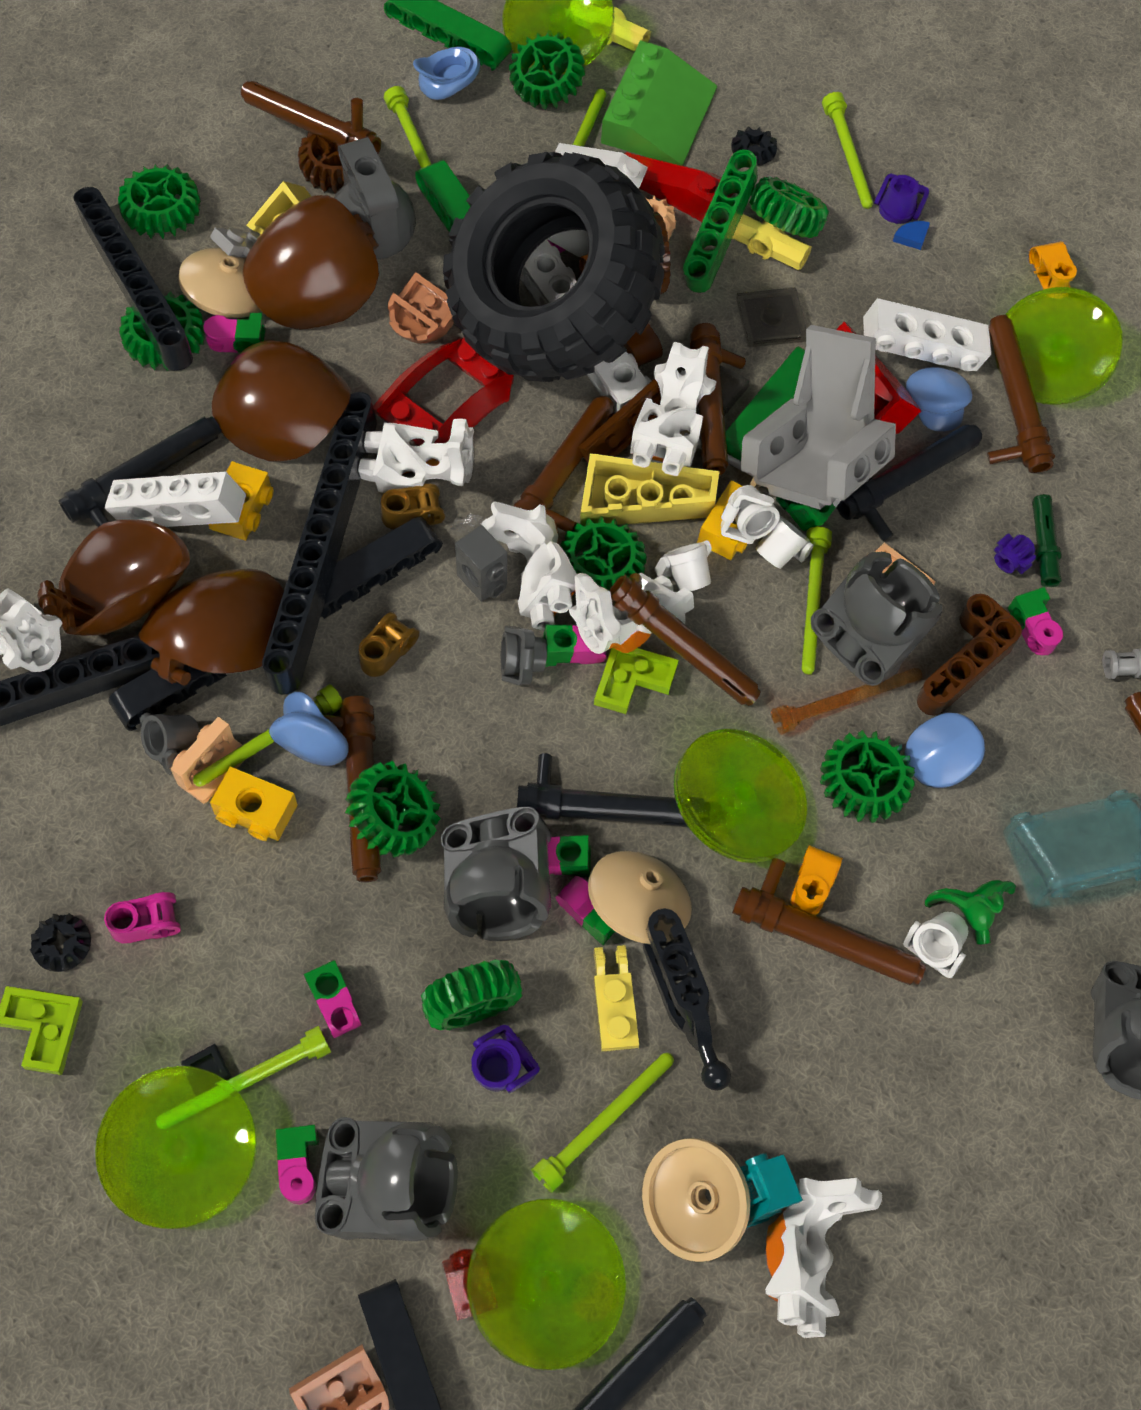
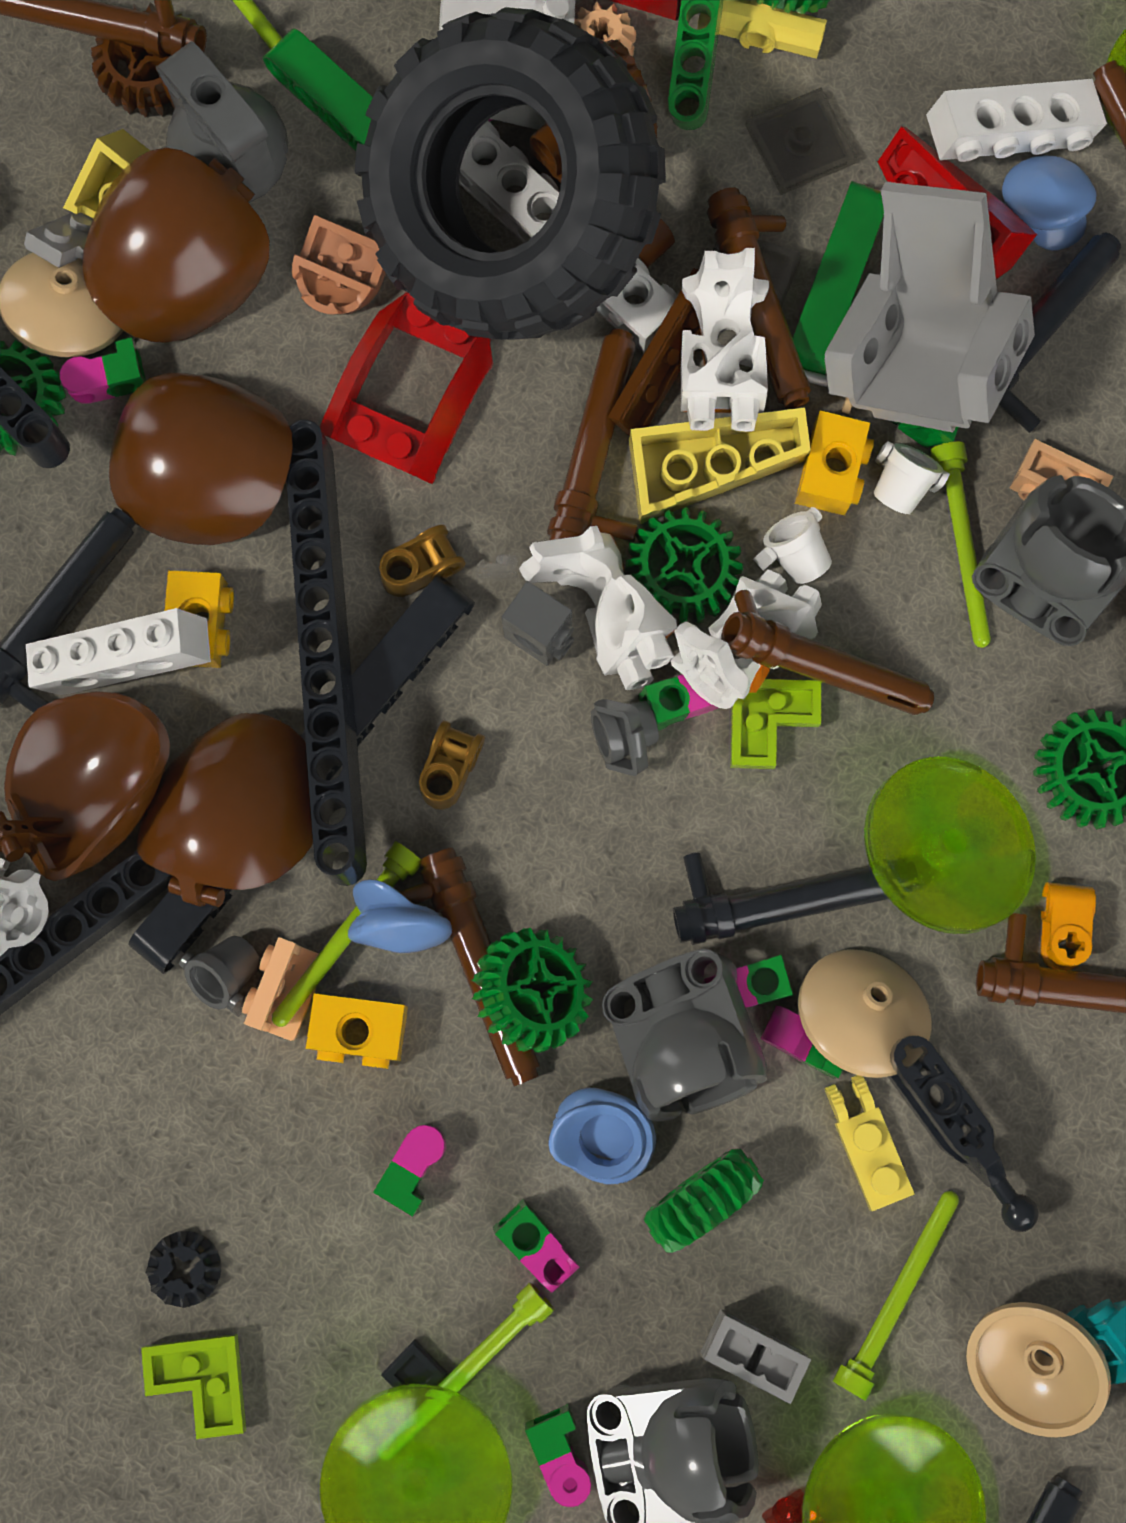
camera: 10 degrees left, 15 degrees up
(145, 917) = (277, 1212): dark pink piece -> none
(258, 912) = (417, 1152): none -> leg
(414, 926) = (602, 1125): none -> medium blue piece
(430, 460) = (381, 499): white hips -> none
(474, 1126) = (755, 1356): none -> light grey brick
(499, 1061) = (760, 1273): dark purple piece -> none
(752, 512) = (863, 458): white piece -> none
(791, 716) = (980, 714): clear orange piece -> none

